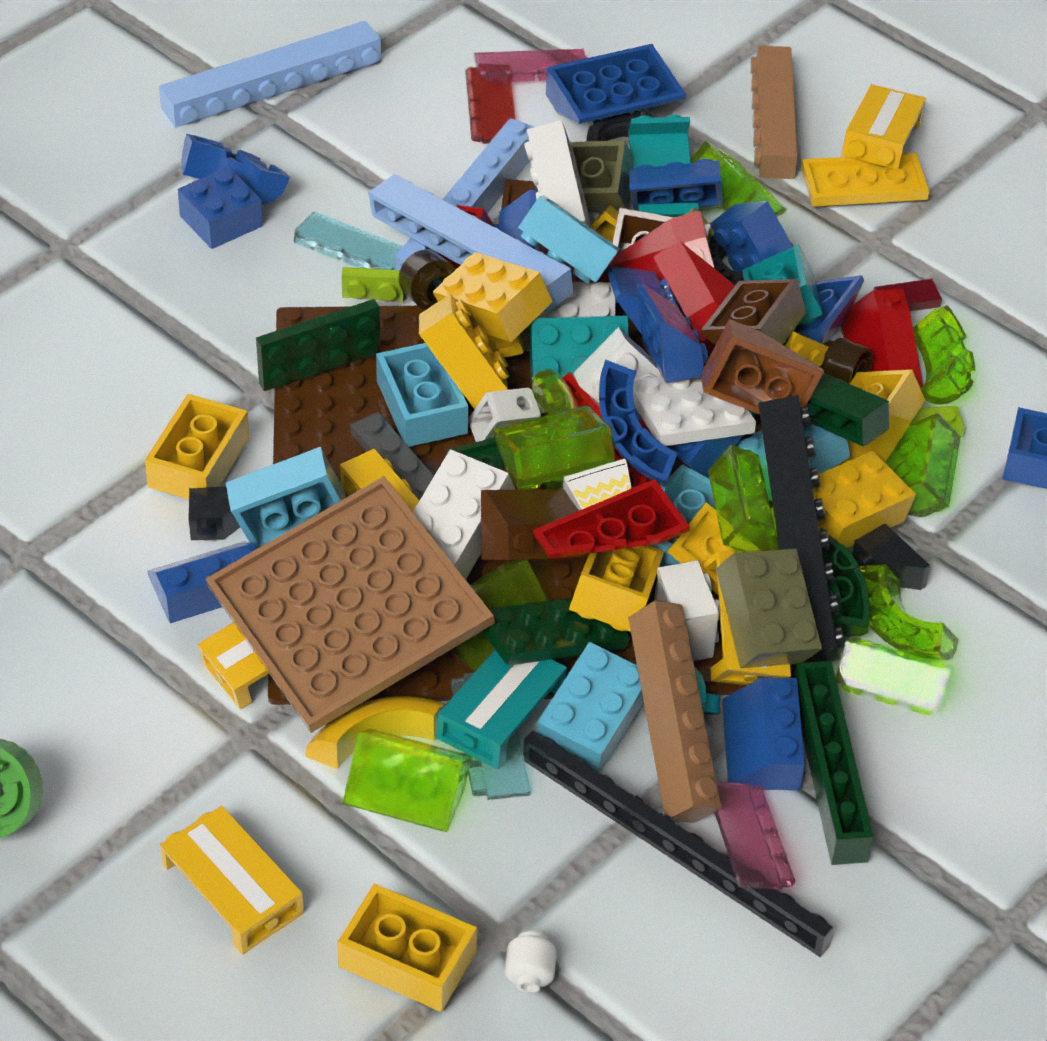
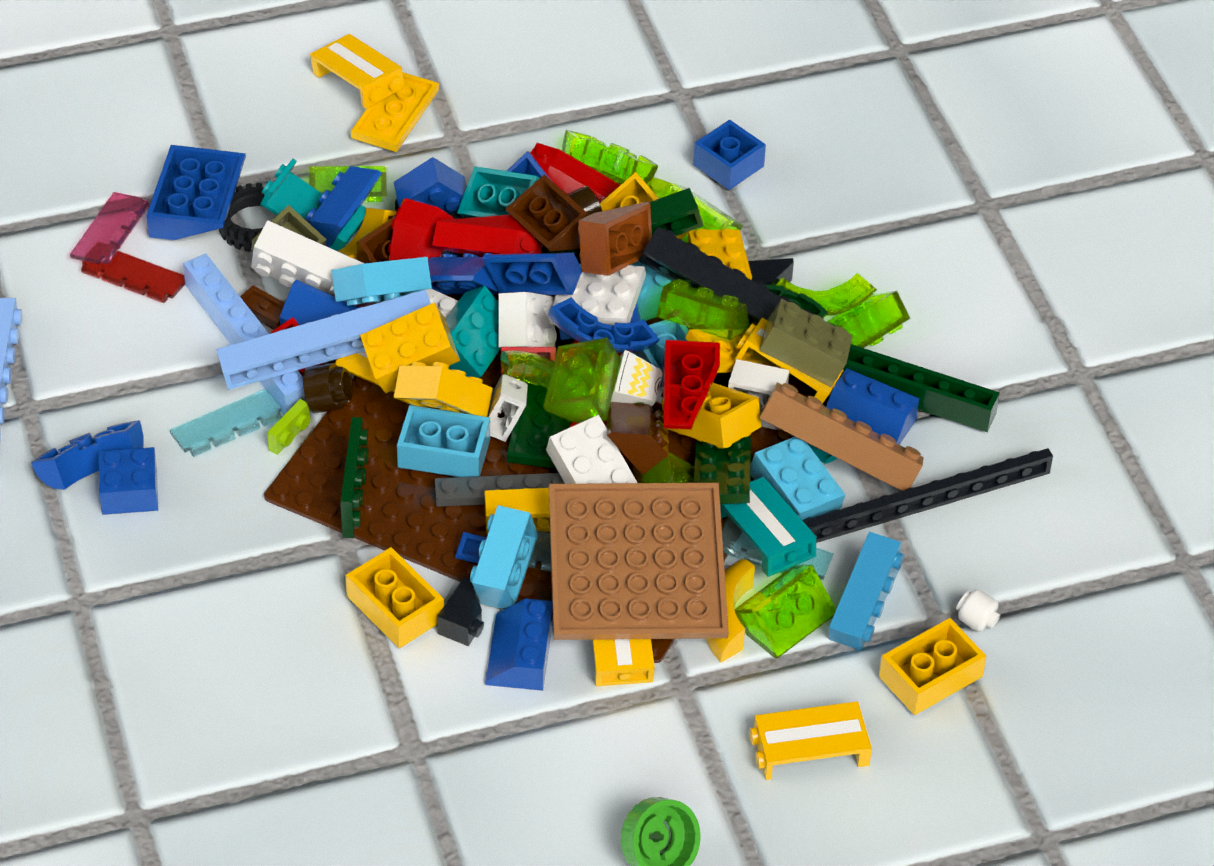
camera: 60 degrees left, 0 degrees up
(480, 838) = (866, 591): none -> dark azure wedge
(752, 838) = (963, 457): clear pink windscreen -> none
(775, 112) = (285, 120): medium nougat brick -> none
(919, 294) = (525, 142): dark red tile -> none

